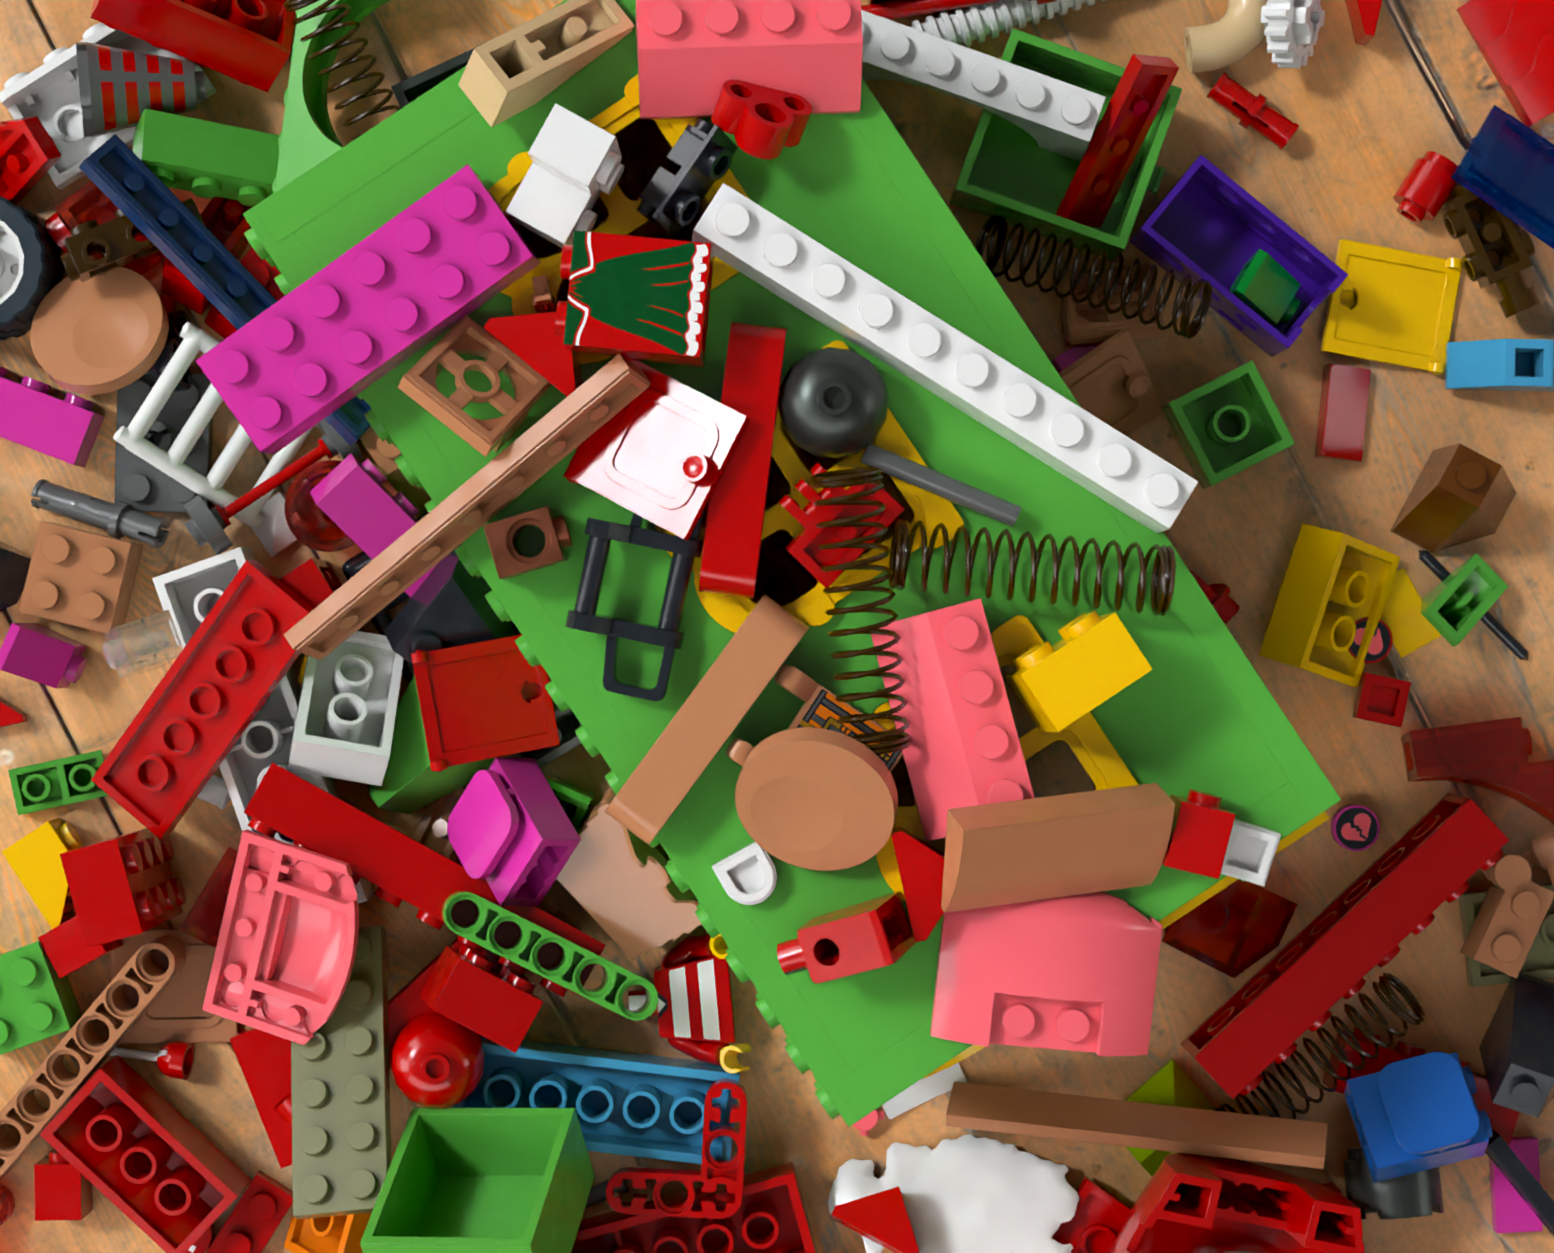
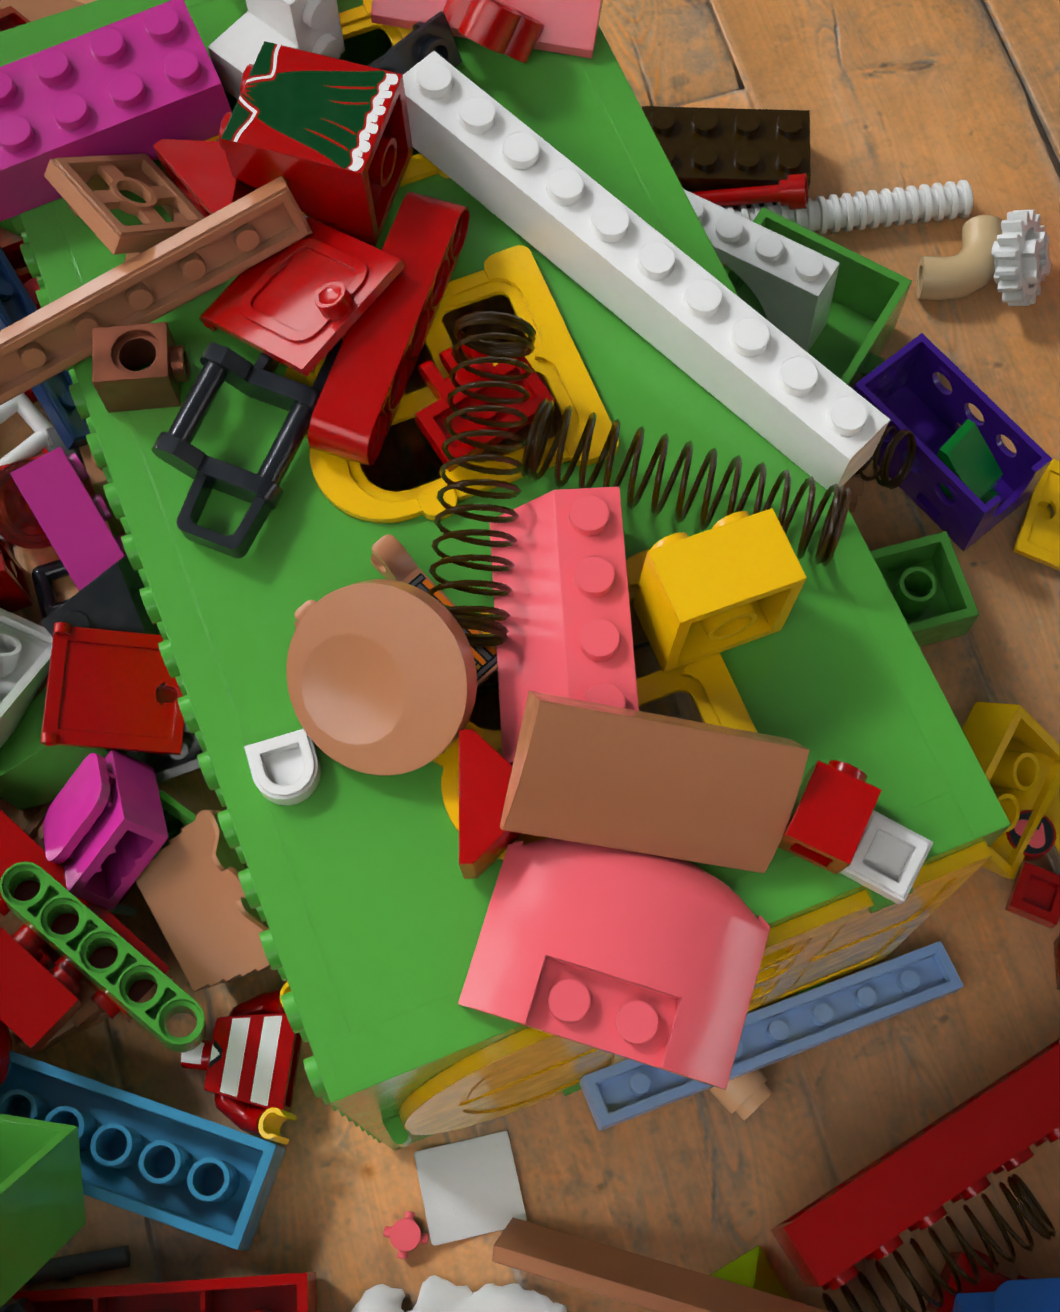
camera: 15 degrees right, 20 degrees down
(706, 719) = (264, 589): nougat beam -> none
(712, 1170) = (215, 1245): red beam -> none
(833, 402) = (503, 274): pearl dark grey cylinder -> none
(864, 935) = (382, 850): torso -> none
(941, 484) = (604, 395): dark grey bar -> none
(1117, 139) = (854, 298): red plate -> none
(1232, 927) = (846, 1094): clear red slope -> none
(1252, 111) = (950, 320): red pin -> none
(1342, 412) = (1027, 613): slope -> none
(1355, 827) = (994, 1026): tile -> none

